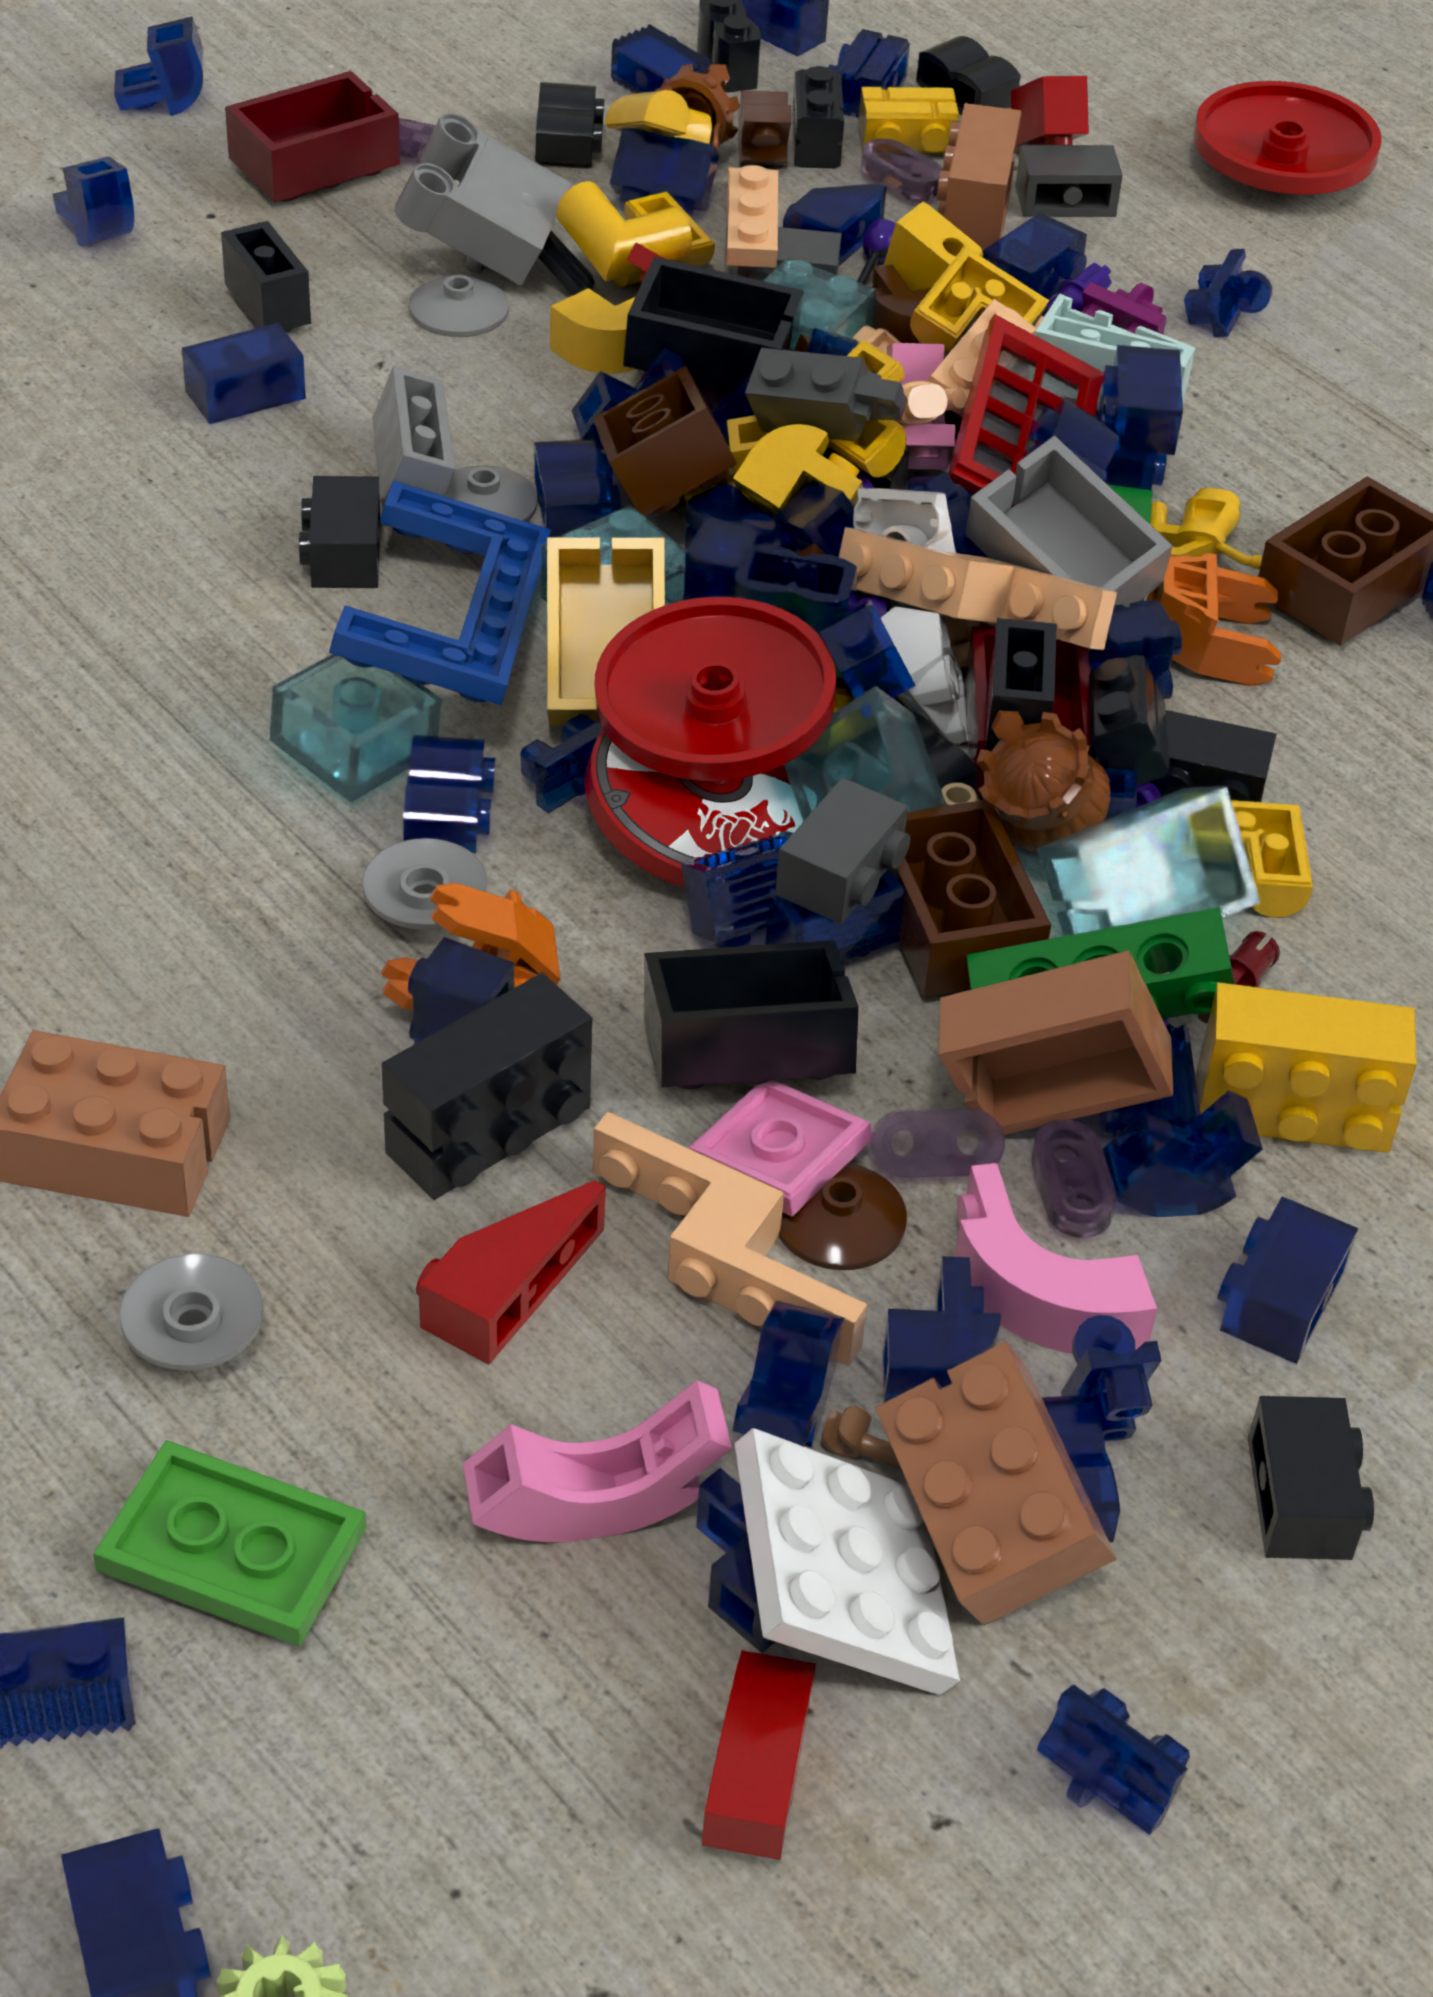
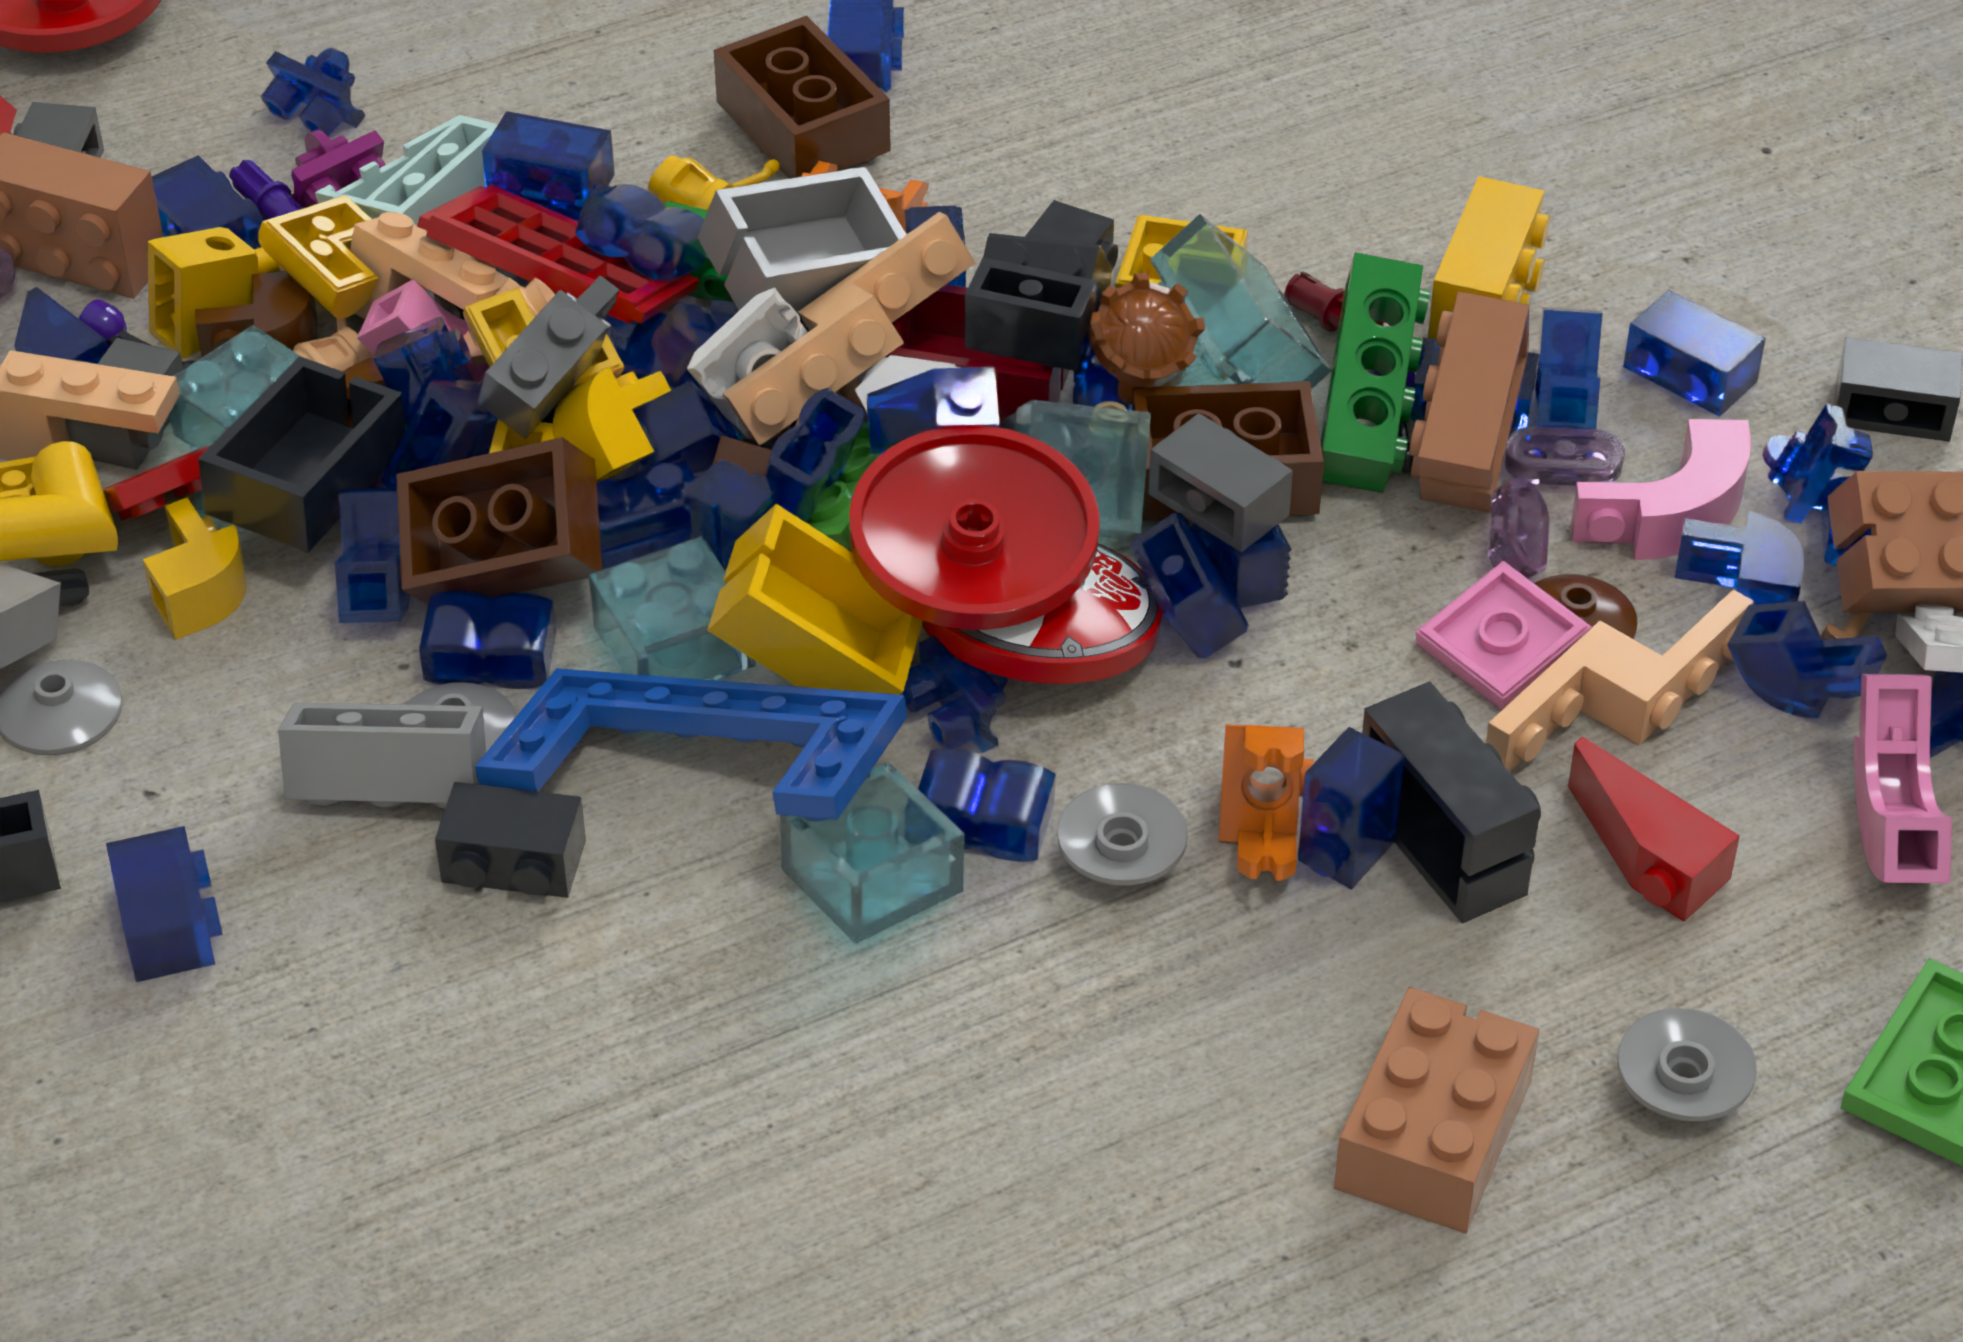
camera: 75 degrees left, 0 degrees up
(750, 1014) = (1366, 626): black piece -> none

